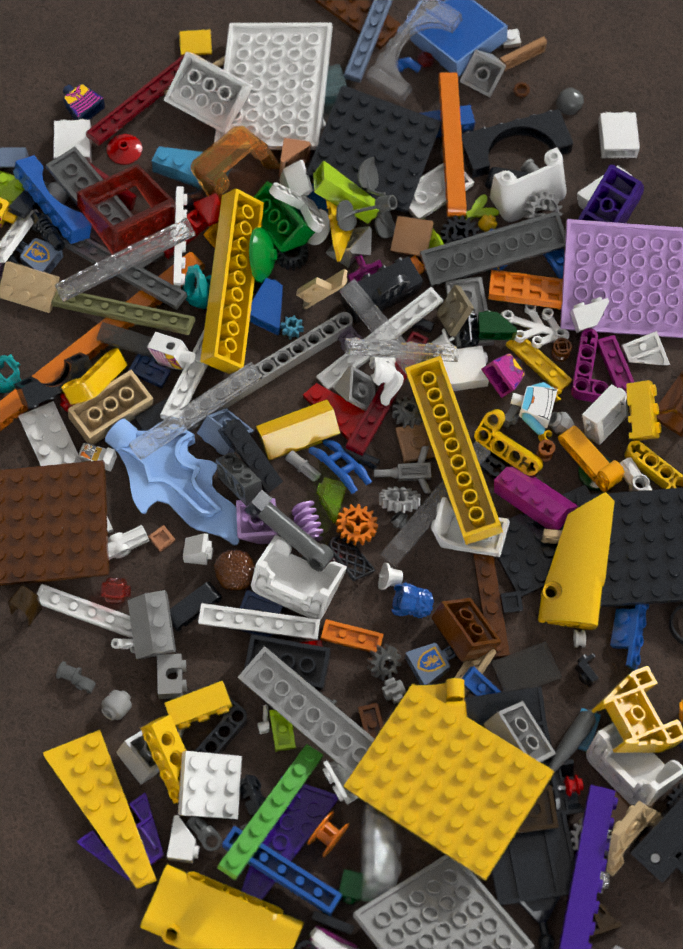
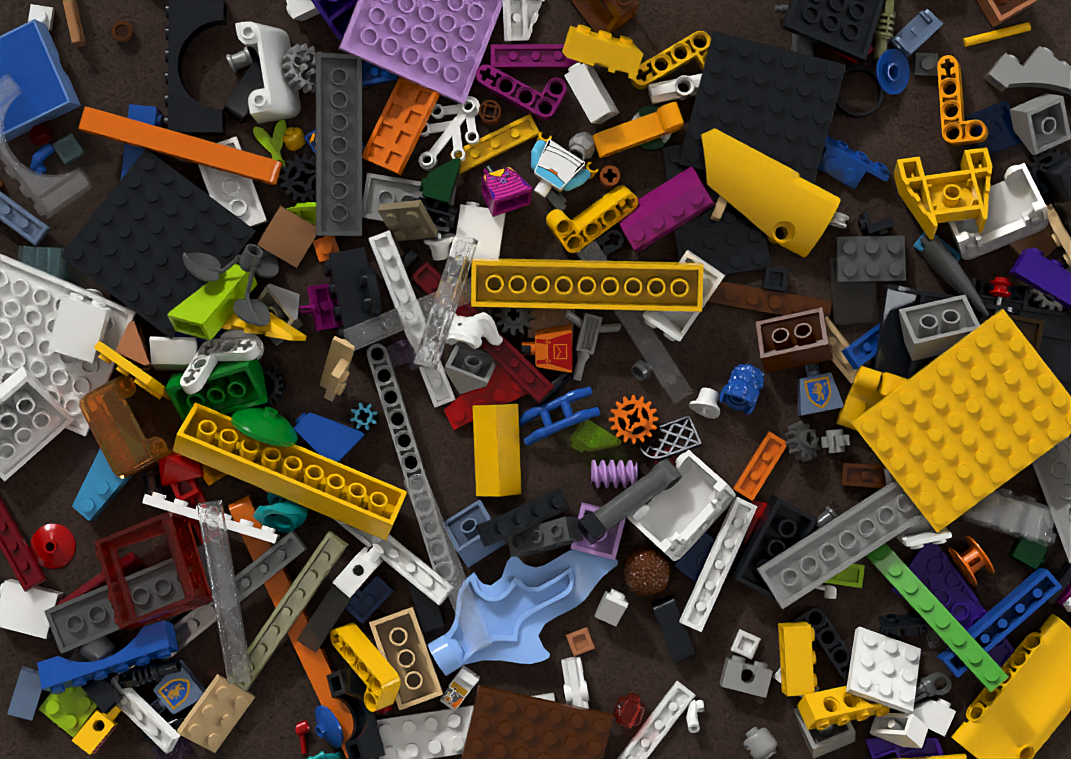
camera: 75 degrees left, 20 degrees up
(31, 351) = (301, 729): none -> red hand
(39, 364) = (328, 726): none -> blue dish
(151, 625) = (688, 682): light grey slope -> none
(162, 817) = (900, 729): none -> white slope
(198, 670) = (745, 644): none -> white tile
(271, 156) = (126, 368): none -> yellow plate
(293, 112) = (79, 327): none -> white brick
(303, 466) = (542, 457): light grey axle -> none
(392, 446) = (552, 348): none -> torso
(408, 499) = (623, 352): light grey gear -> none
(422, 79) = (68, 149): none -> clear light blue plate
(483, 72) = (86, 70): light grey slope -> none
(556, 673) = (870, 259): none -> dark grey plate
(588, 315) = (464, 66): white slope -> none

